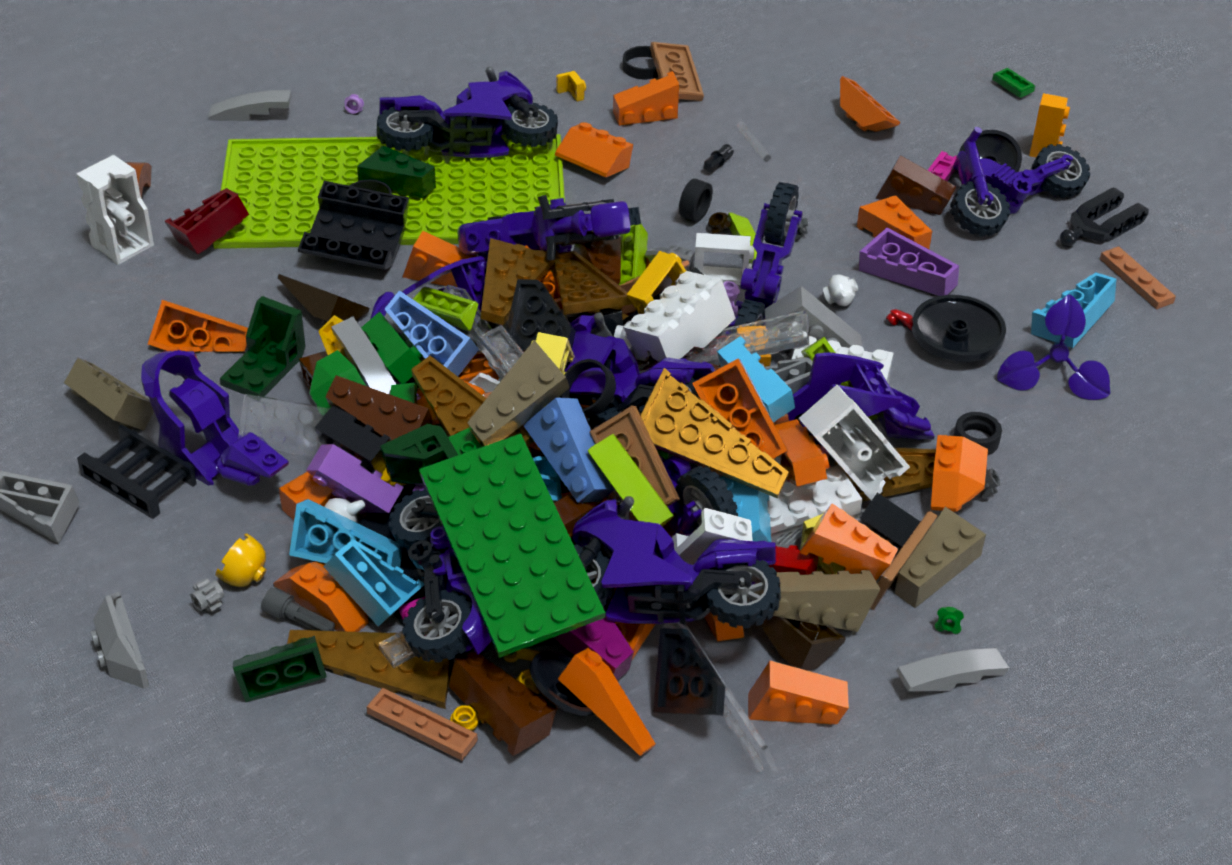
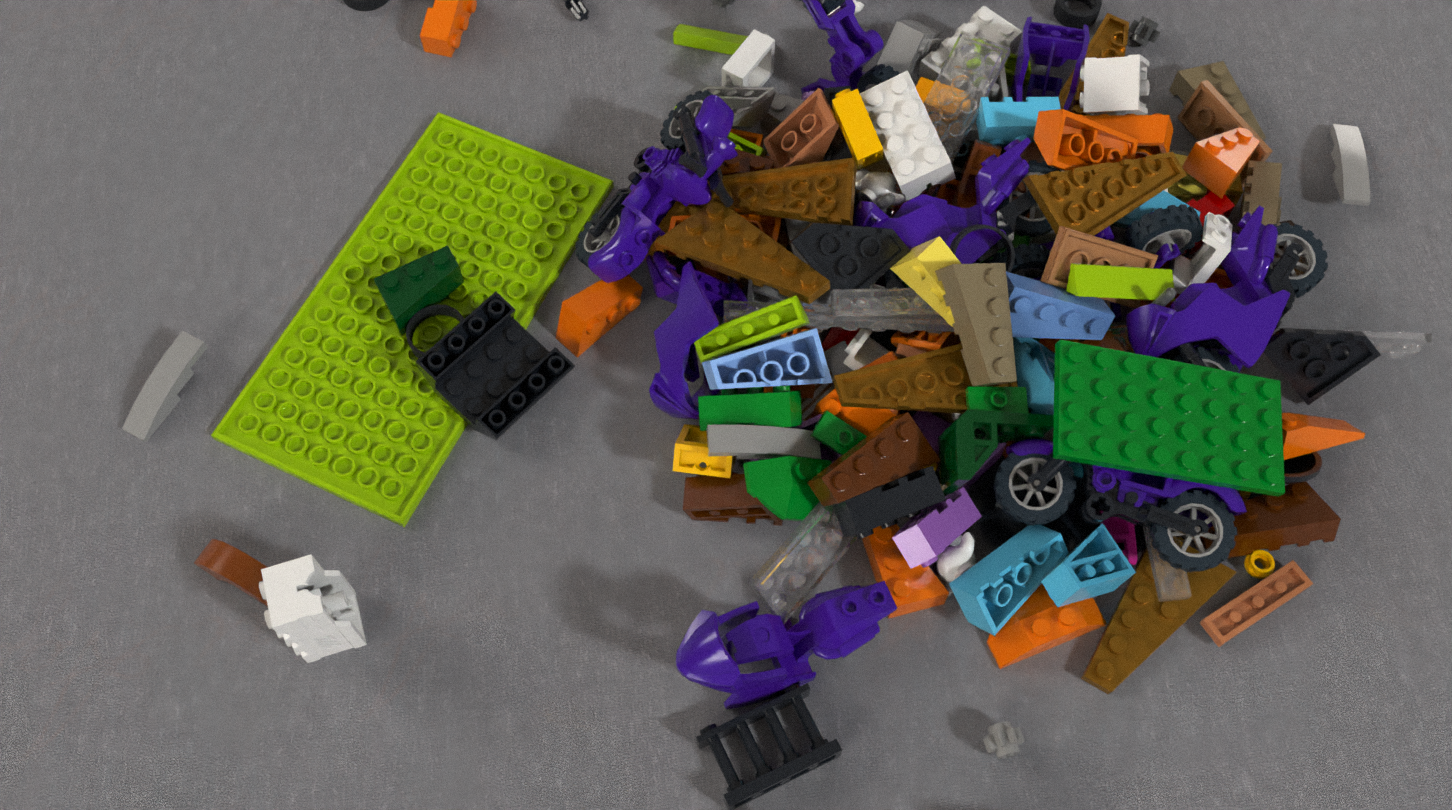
camera: 60 degrees left, 20 degrees up
(109, 395) = (632, 734): dark tan wedge -> none
(194, 331) = (551, 605): orange wedge -> none
(208, 222) = (381, 514): dark red wedge -> none
(243, 562) = (974, 687): yellow cylinder -> none
(273, 345) = (646, 541): dark green bracket -> none
(279, 669) = (1149, 704): dark green slope -> none
(282, 605) = (1048, 670): dark grey piece -> none
(322, 303) = (601, 447): dark brown wedge -> none
(353, 109) = (239, 279): lavender plate -> none
(473, 124) = (394, 181): piece -> none
(571, 82) = (363, 62): yellow bracket -> none
(595, 150) = (498, 94): orange slope -> none
(695, 200) = (640, 48): black tyre -> none
(719, 222) = (673, 42): dark brown plate -> none
(731, 289) = (781, 86): lavender plate -> none
(797, 696) = (1344, 289): orange wedge -> none
(889, 520) = (1185, 115): black slope -> none
(952, 614) = (1291, 138): green plate -> none
(957, 472) = (1131, 33): orange wedge -> none

